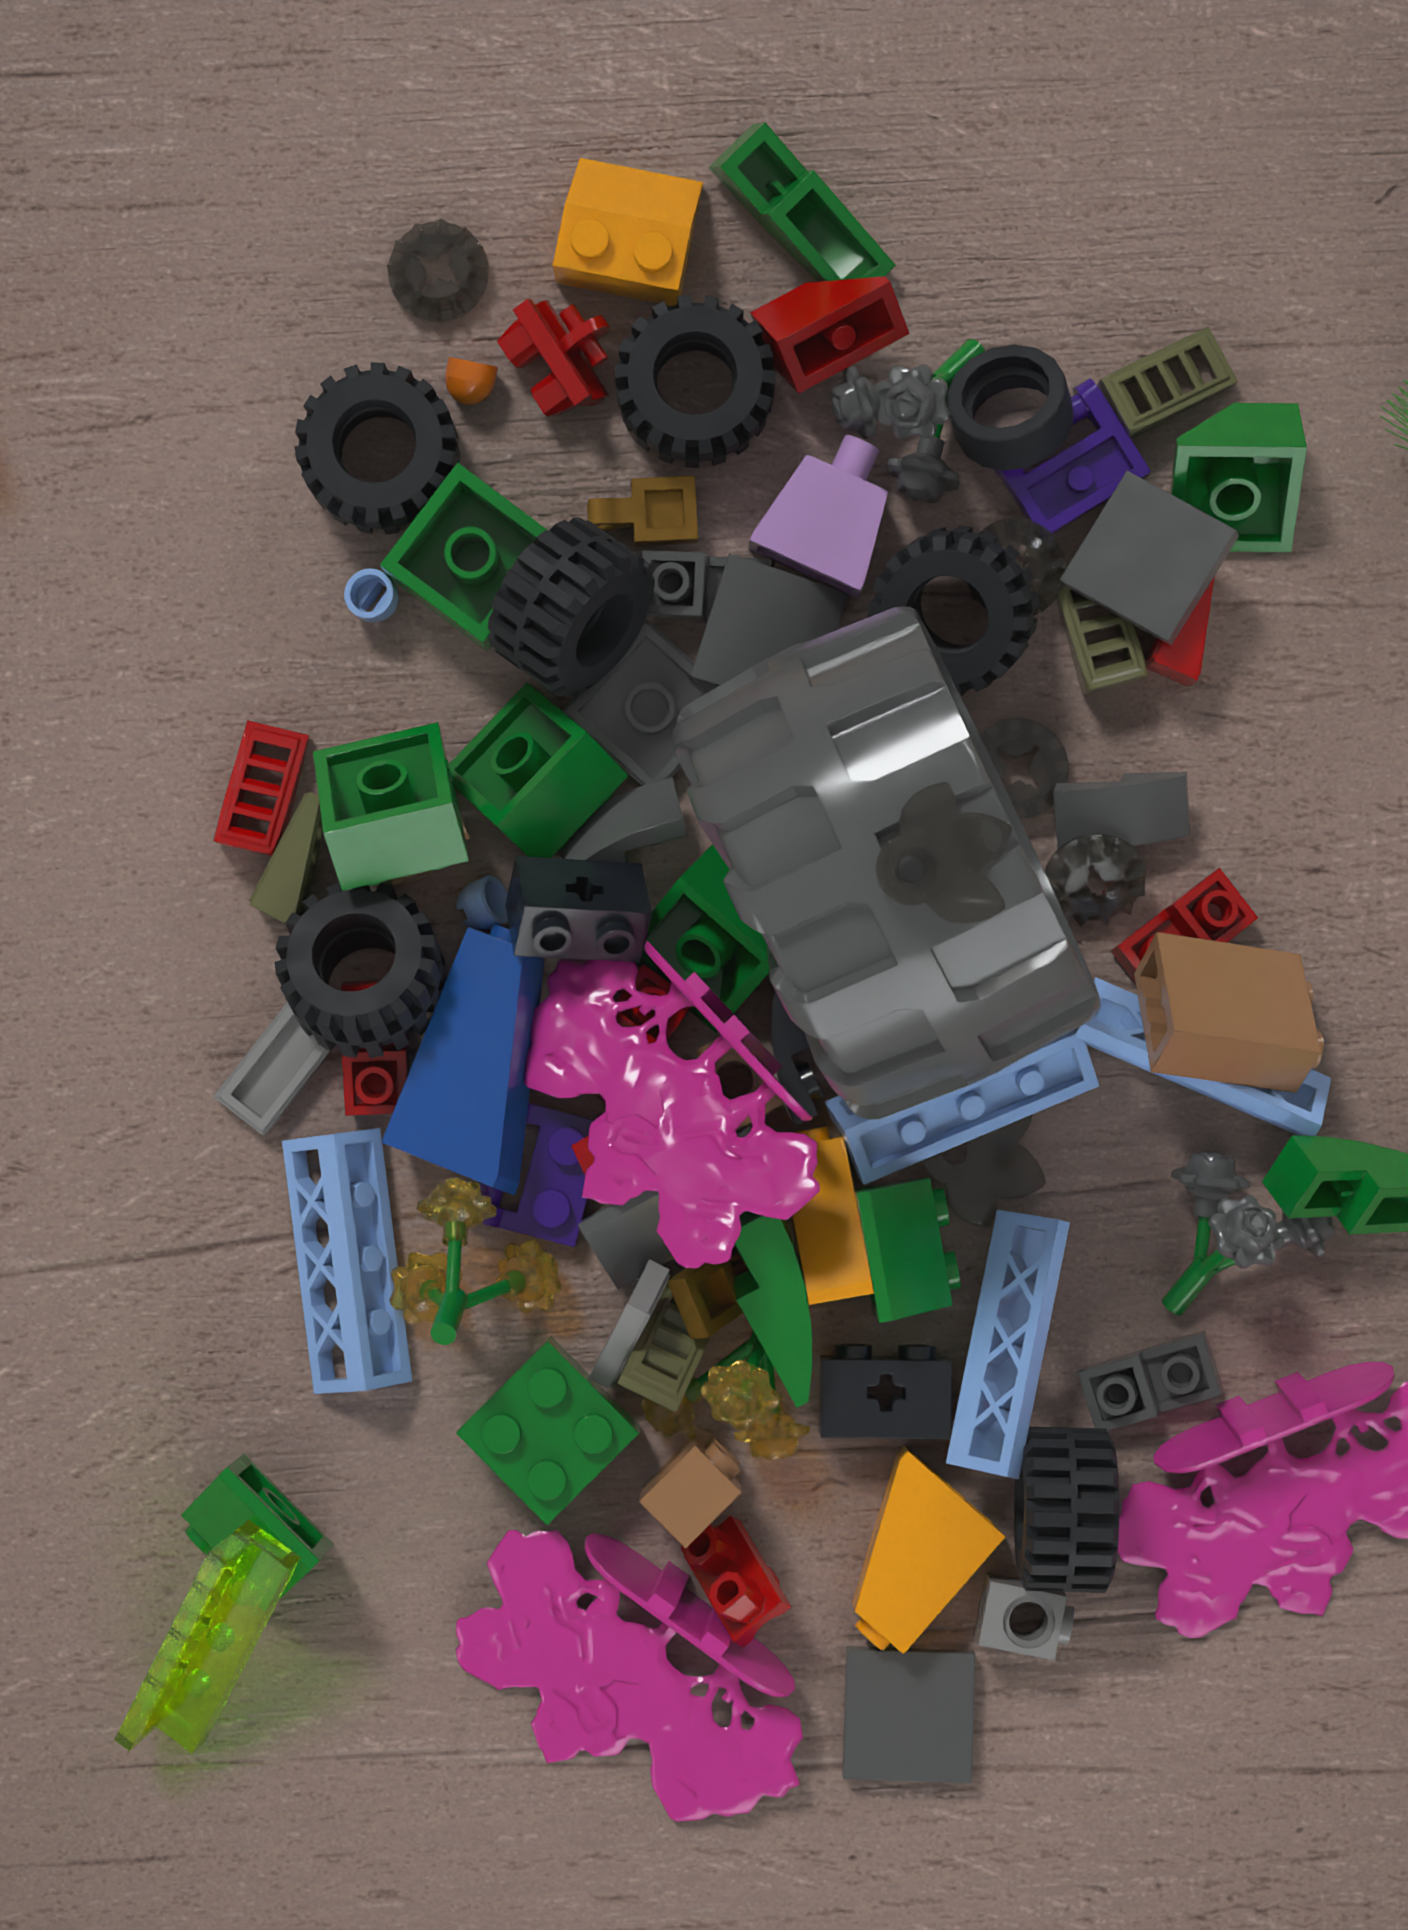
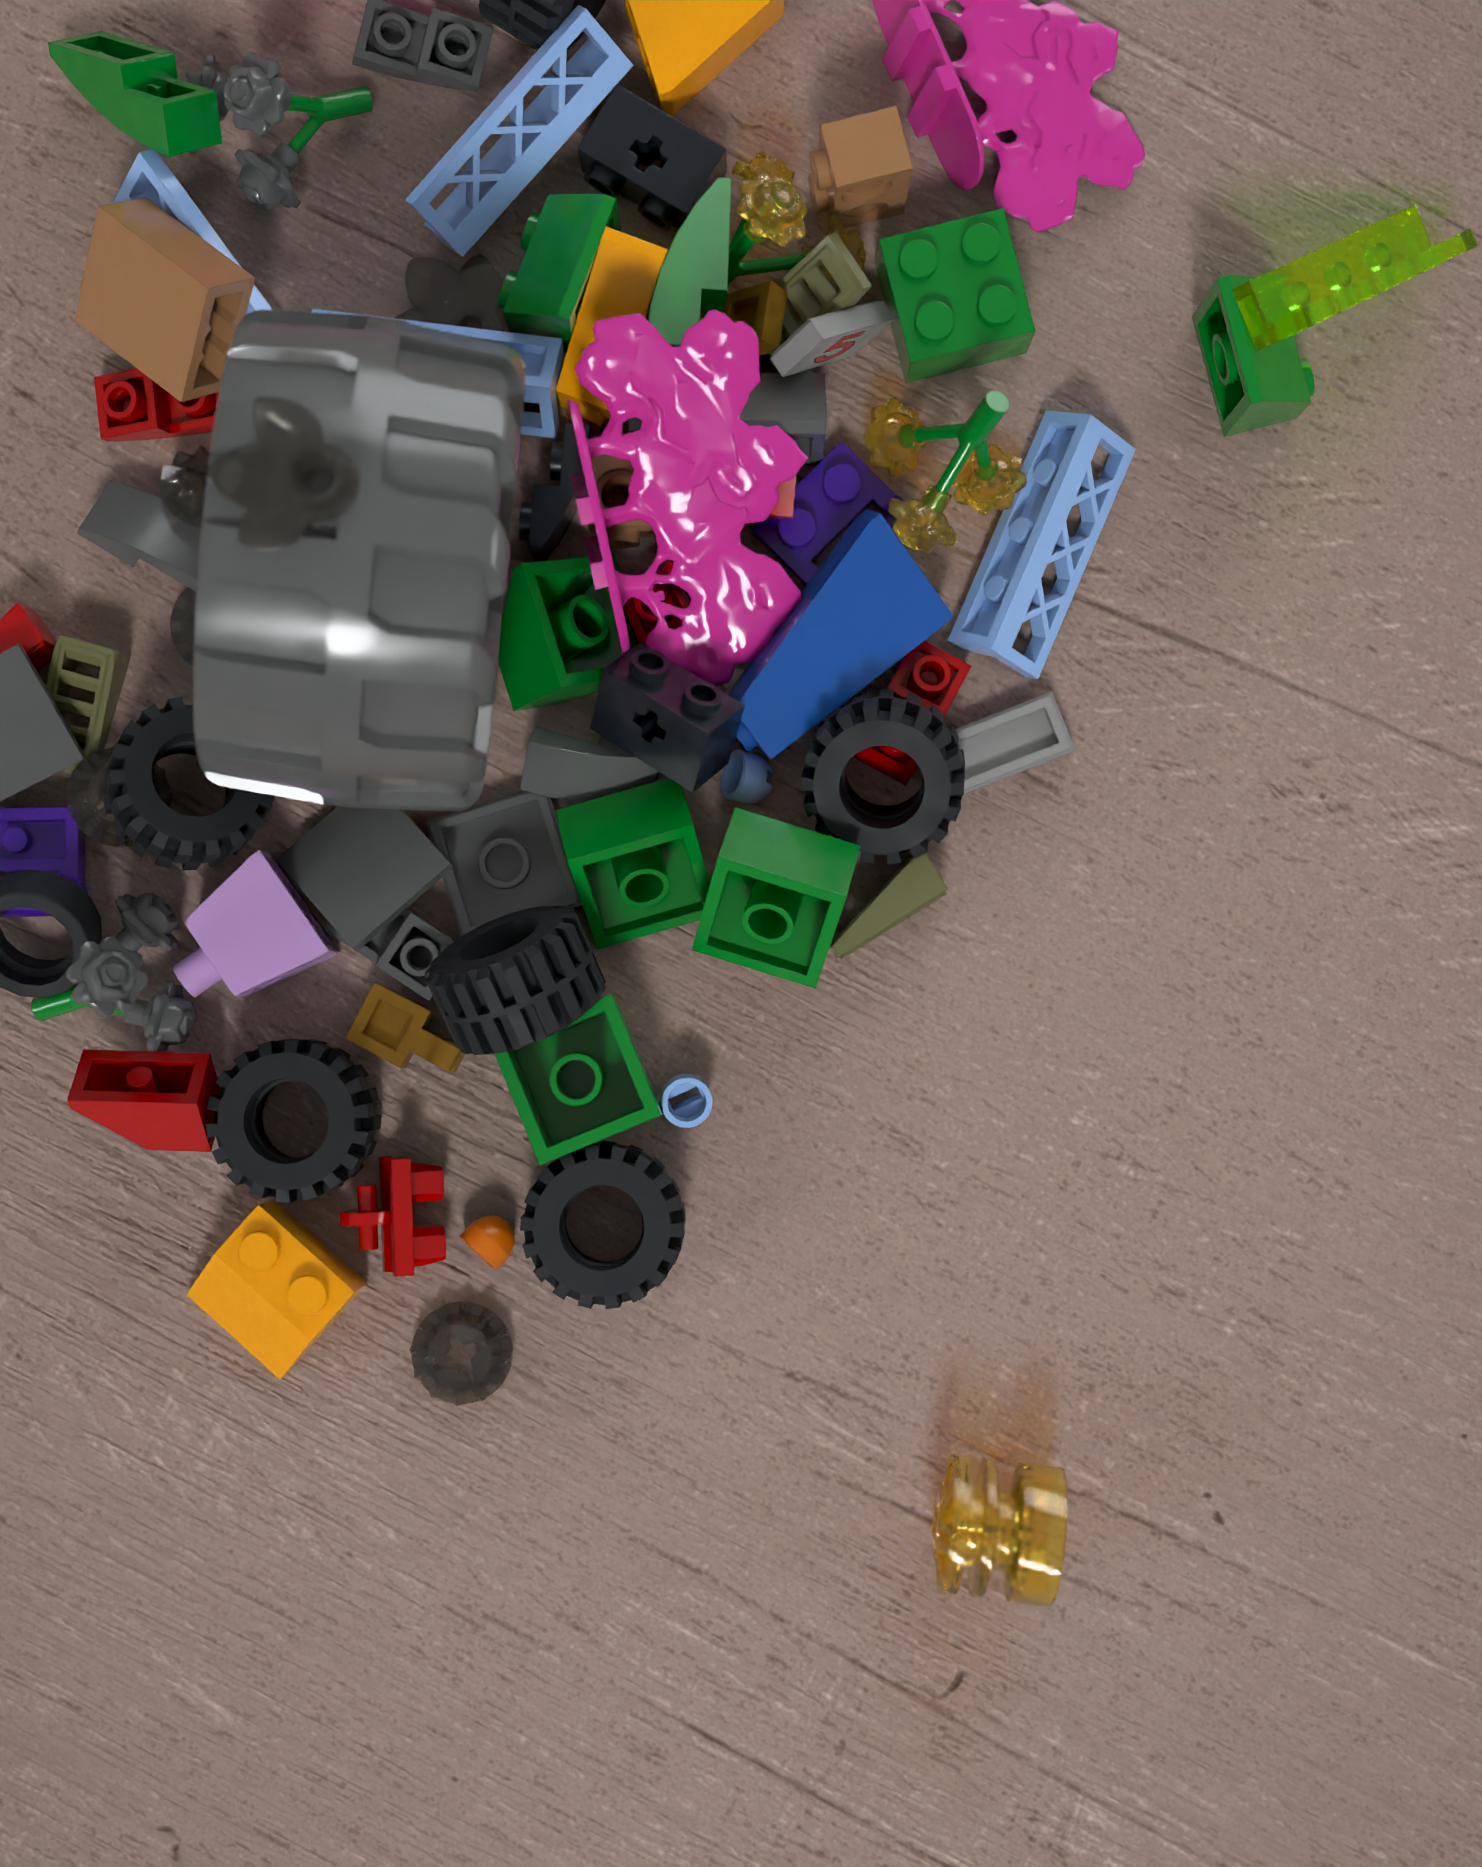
camera: 145 degrees left, 0 degrees up
(233, 806) = (916, 950): red slope -> none
(736, 1579) = (868, 63): red hips -> none
(798, 208) = (116, 1220): green slope -> none

